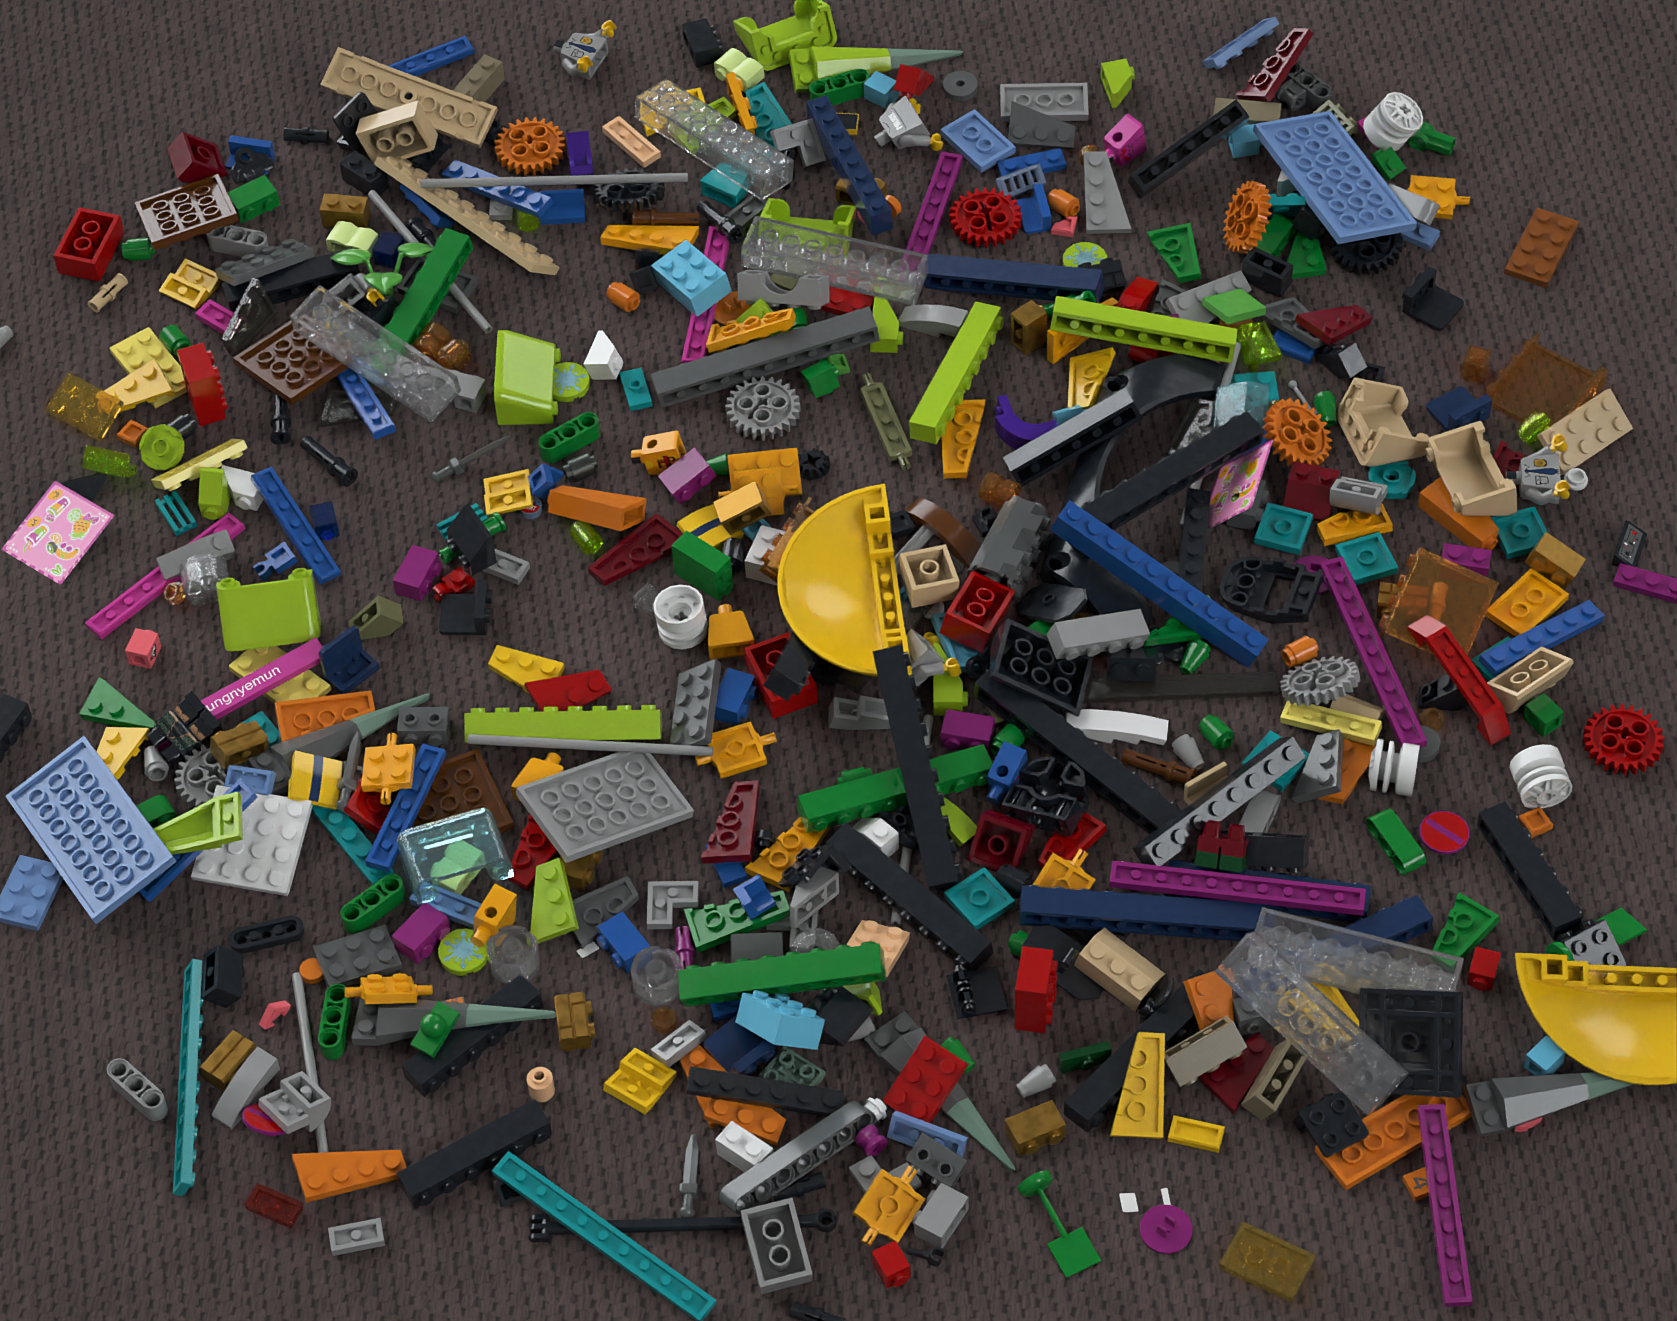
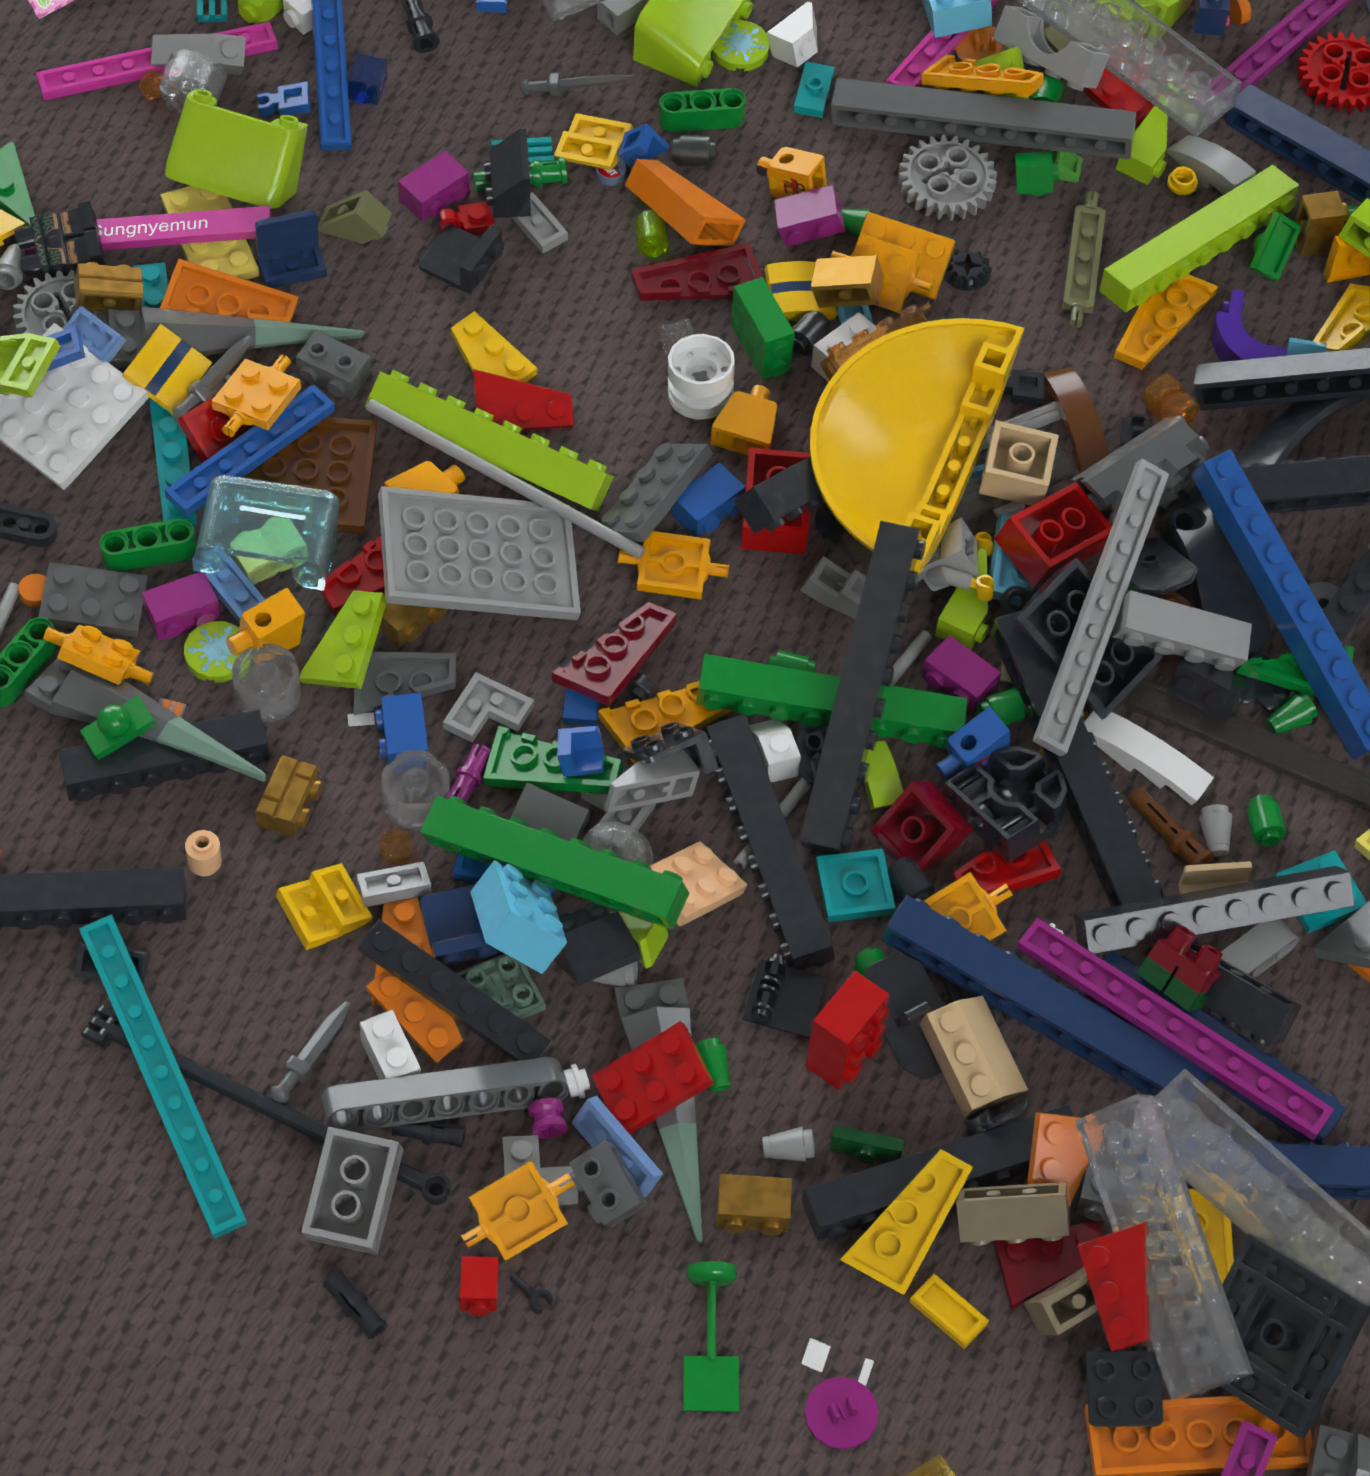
camera: 20 degrees right, 5 degrees up
(143, 648) = (79, 130): coral brick -> none
(920, 334) = (1180, 175): none -> yellow plate
(940, 1215) = (574, 1253): light grey brick -> none
(1007, 356) = (1274, 246): none -> green tile
(1040, 643) = (1100, 608): none -> light grey plate
(1297, 1059) = (1118, 1281): none -> red wing

